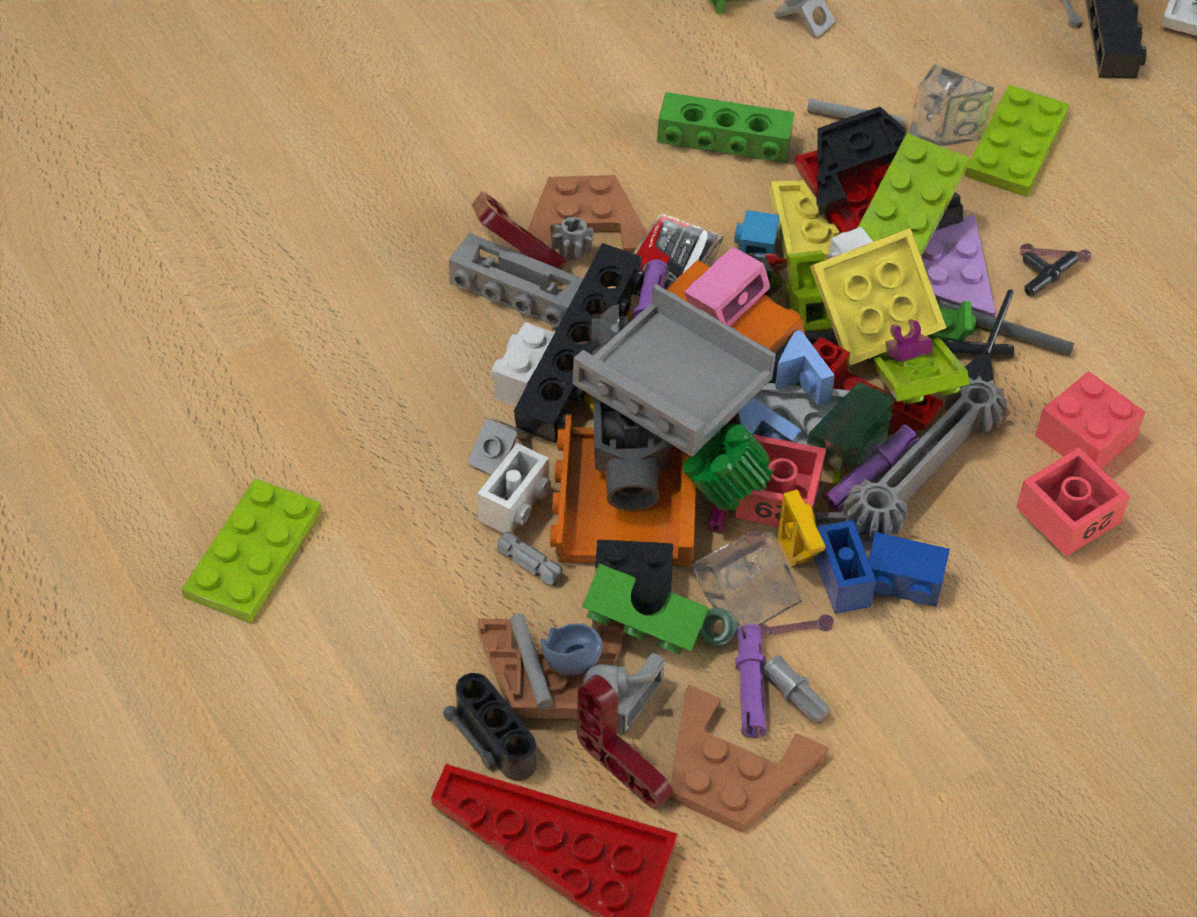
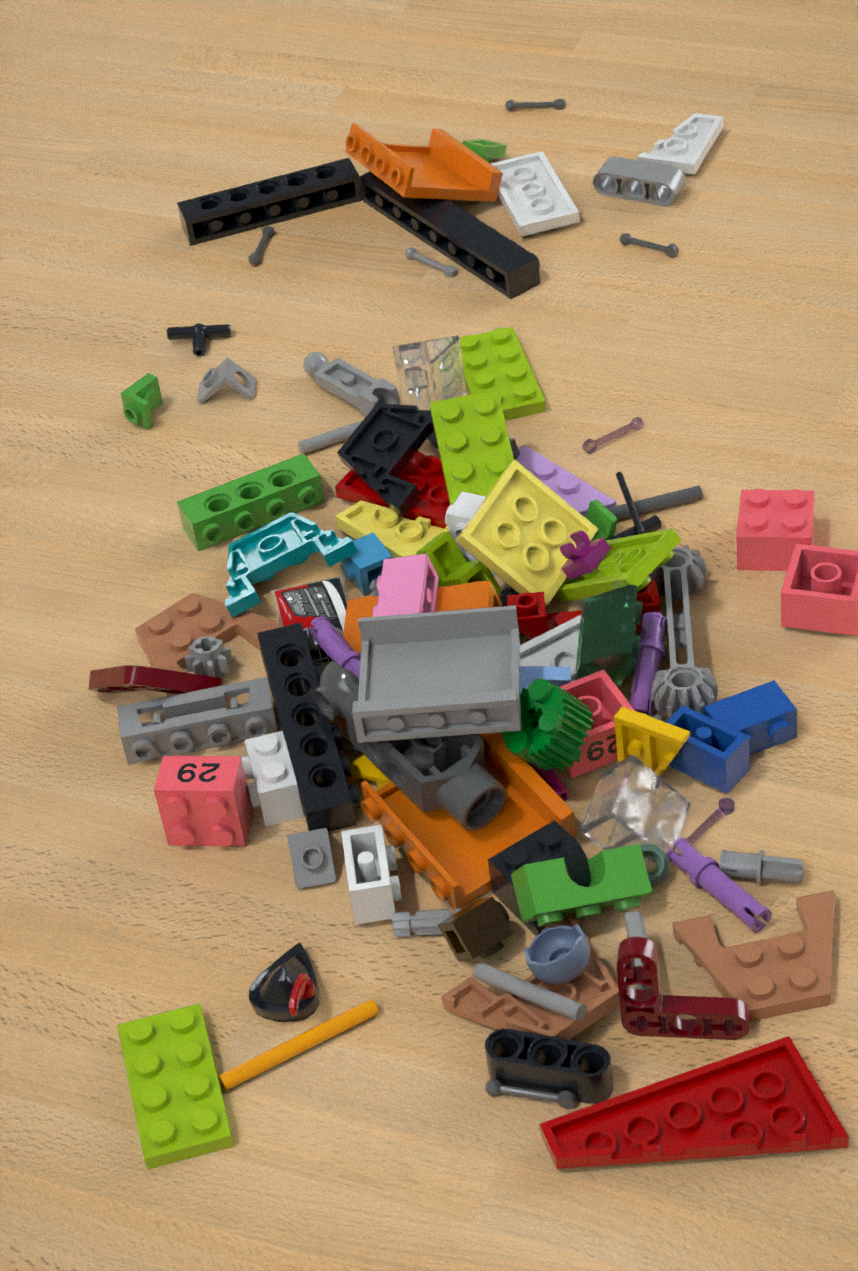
camera: 30 degrees left, 10 degrees down
(357, 581) = (298, 1044): none -> light orange piece
(388, 533) = (286, 988): none -> black piece
(455, 350) = (204, 800): none -> coral brick
(546, 587) = (477, 929): none -> dark brown brick
(618, 677) = (604, 957): light grey piece -> none
(696, 178) = (272, 549): none -> teal wing
(805, 366) = (536, 618): light blue slope -> none
(894, 71) = (350, 383): none -> light grey plate
(1047, 272) = (625, 450): black piece -> none

